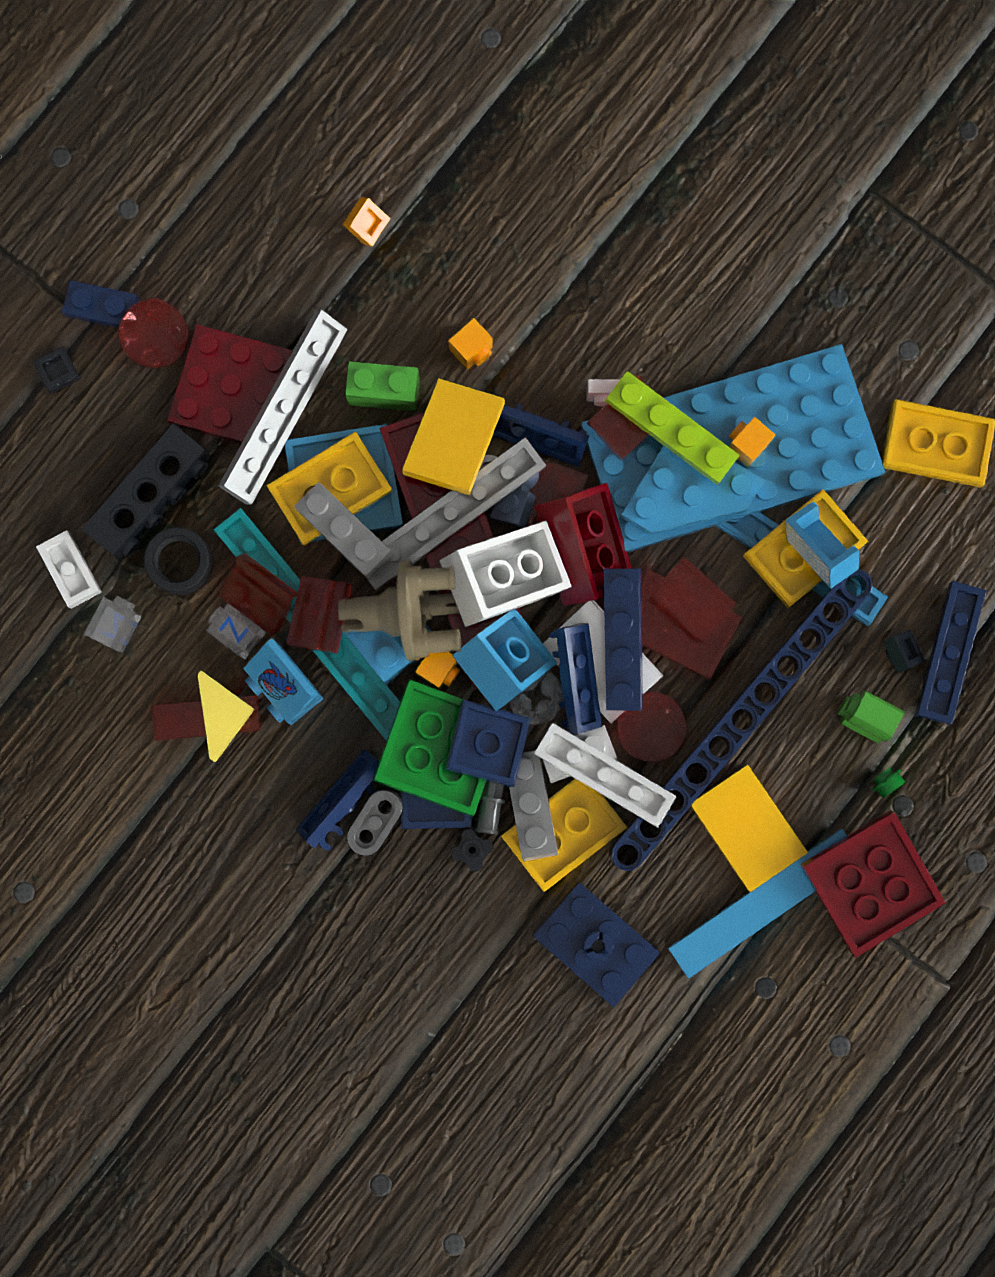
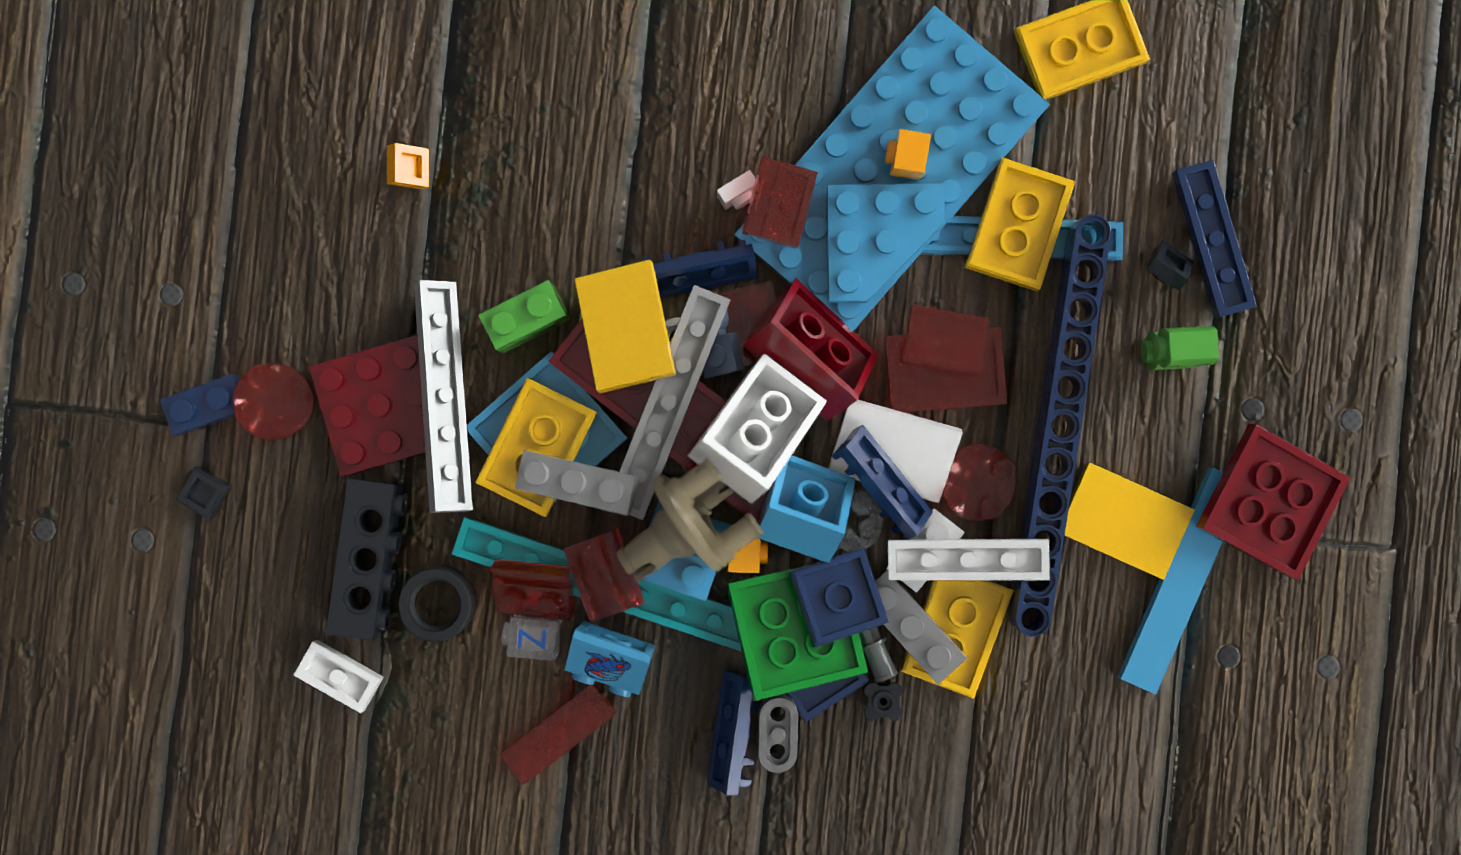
camera: 30 degrees left, 5 degrees up
(113, 623) = (414, 702): clear brick -> none
(222, 714) = (571, 723): light yellow tile -> none
(471, 344) = (584, 224): light orange plate -> none
(596, 944) = (1050, 715): dark blue plate -> none
(623, 639) = (905, 419): dark blue plate -> none
(672, 428) = (828, 188): lime plate -> none
(820, 546) = (1039, 216): dark azure panel -> none
(887, 782) = (1229, 397): green plate -> none

